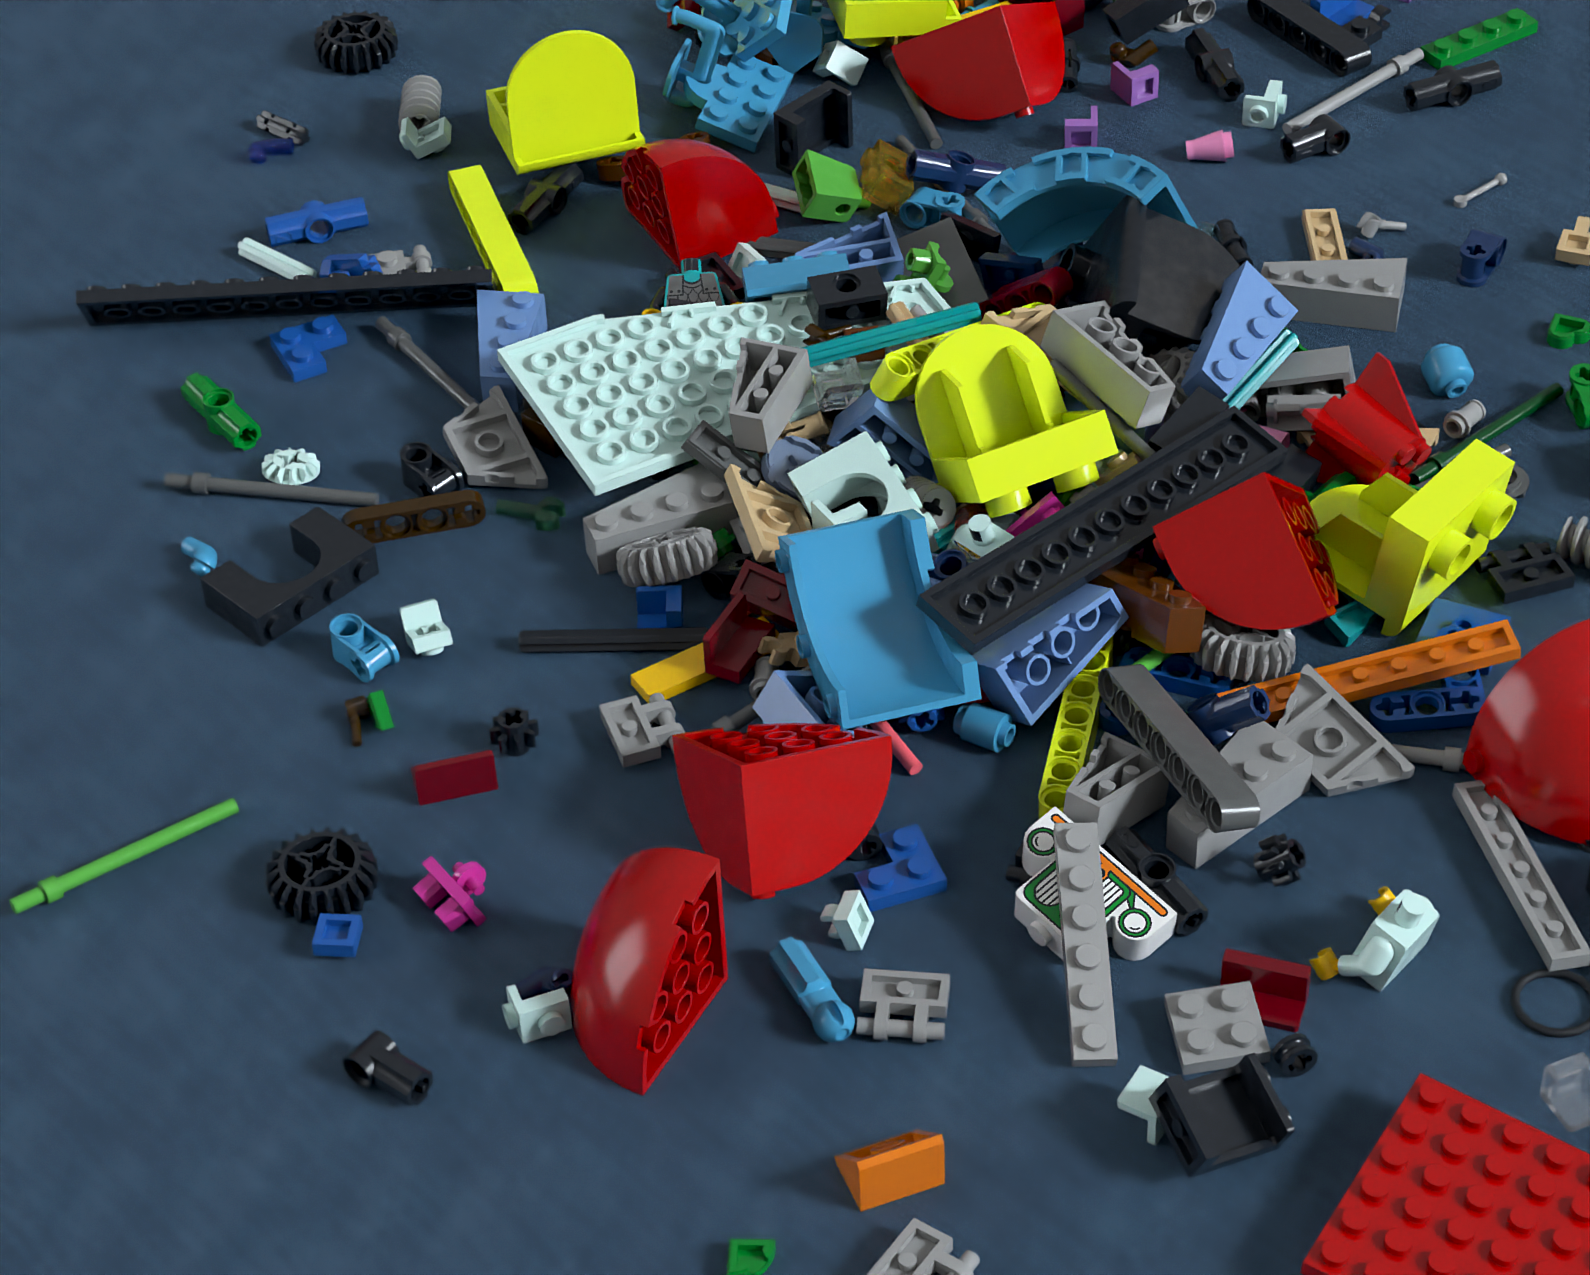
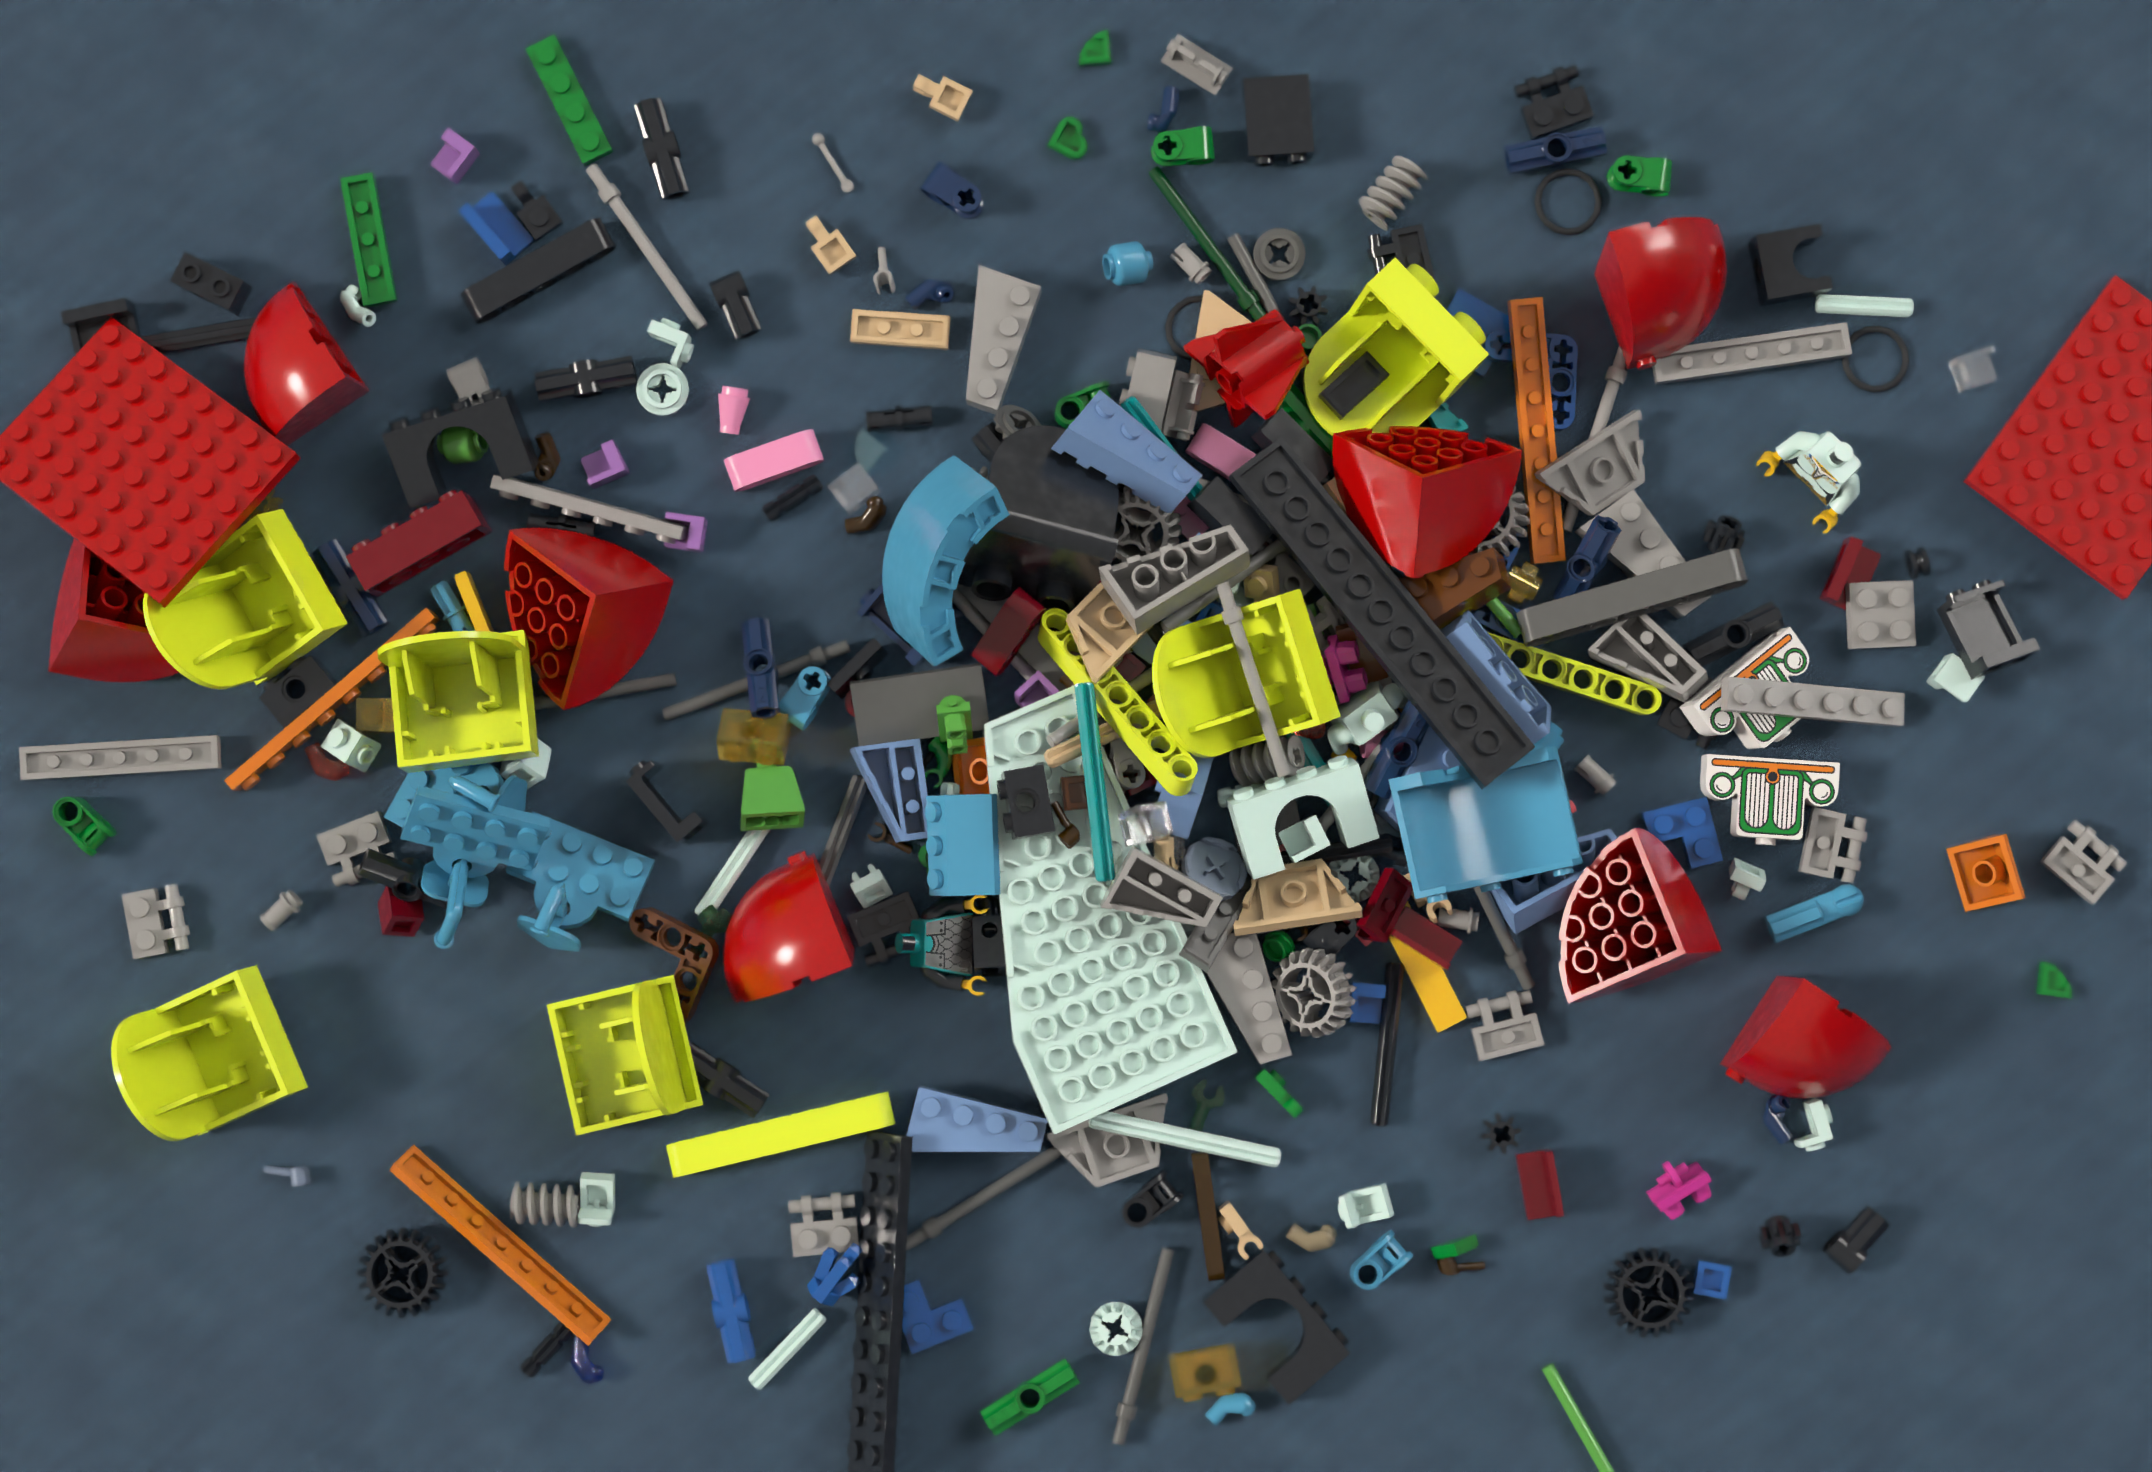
camera: 85 degrees left, 45 degrees up
(241, 528) = (1219, 1357): none -> clear yellow brick
(378, 91) = (500, 1244): none -> orange plate
(385, 600) = (1313, 1241): none -> dark tan arm
(392, 988) = (1780, 1236): none -> black gear
(405, 538) = (1232, 1222): none -> tan plate
(498, 487) = (1186, 1138): none -> light aqua axle
(557, 553) = (1274, 1085): none -> green plate
(949, 786) = (1595, 775): none -> light grey pin
(960, 933) = (1768, 793): none -> brick
(1073, 402) = (1232, 616): none -> light grey bar
(1090, 68) = (576, 505): none -> light grey plate
(1180, 686) = (1523, 582): none -> clear yellow gear
(1183, 177) = (773, 460): none -> bright pink beam
(1228, 108) = (652, 378): none -> light aqua gear
(1359, 507) = (1353, 385): none -> black tile
(1393, 189) = (831, 248): none -> tan plate

